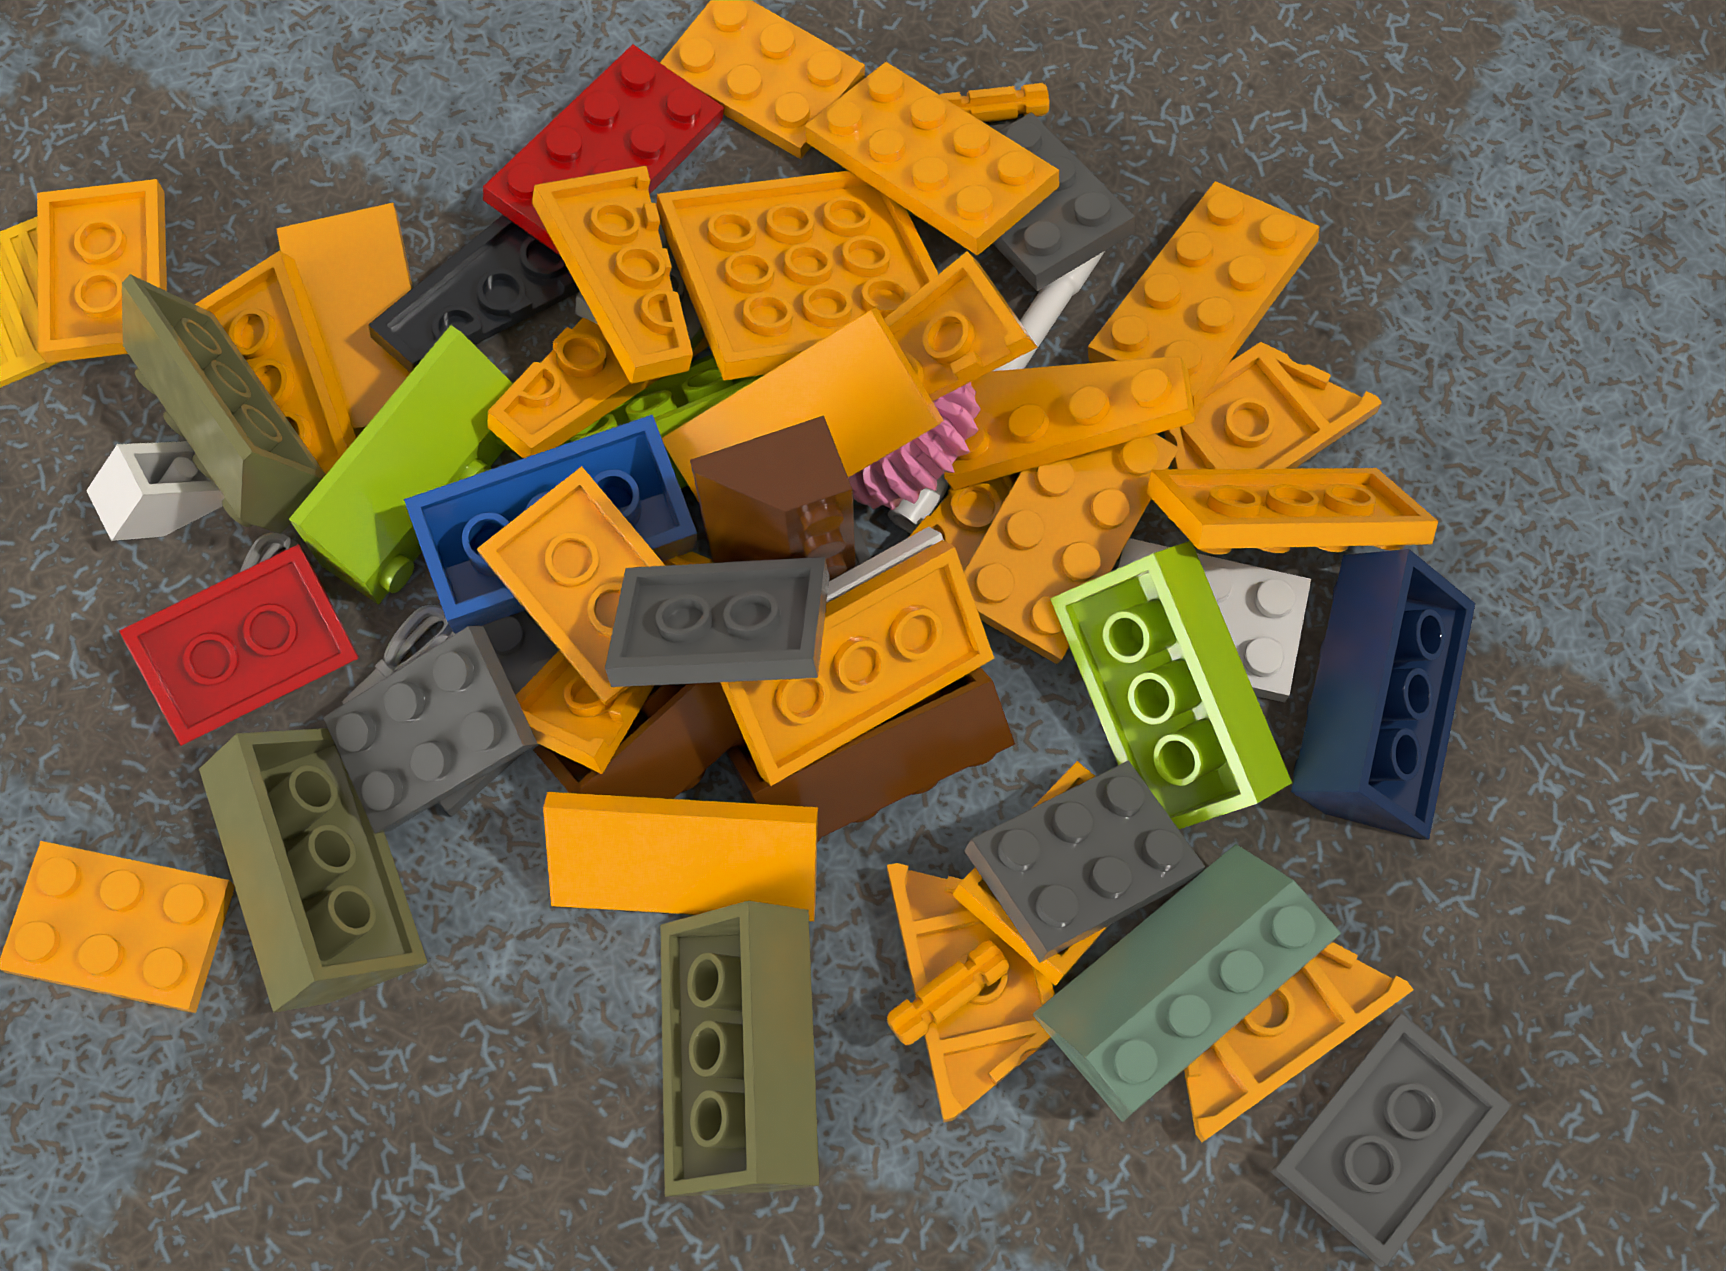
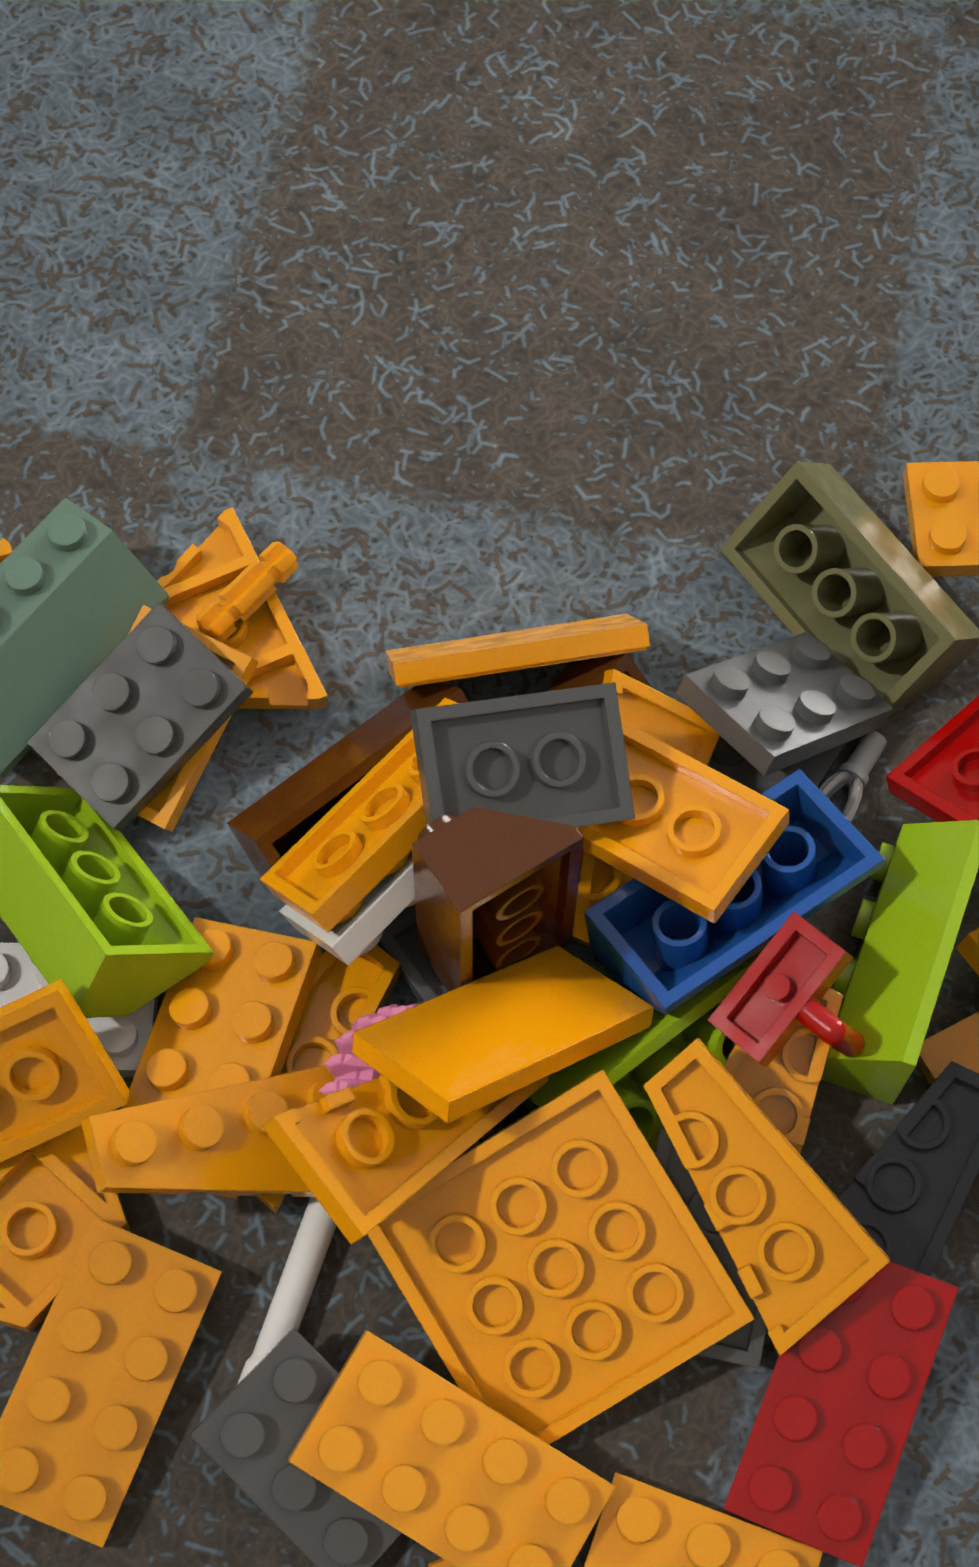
camera: 165 degrees right, 5 degrees down
(537, 406) = (784, 992): none -> red plate
(738, 1052) = (422, 525): olive slope -> none

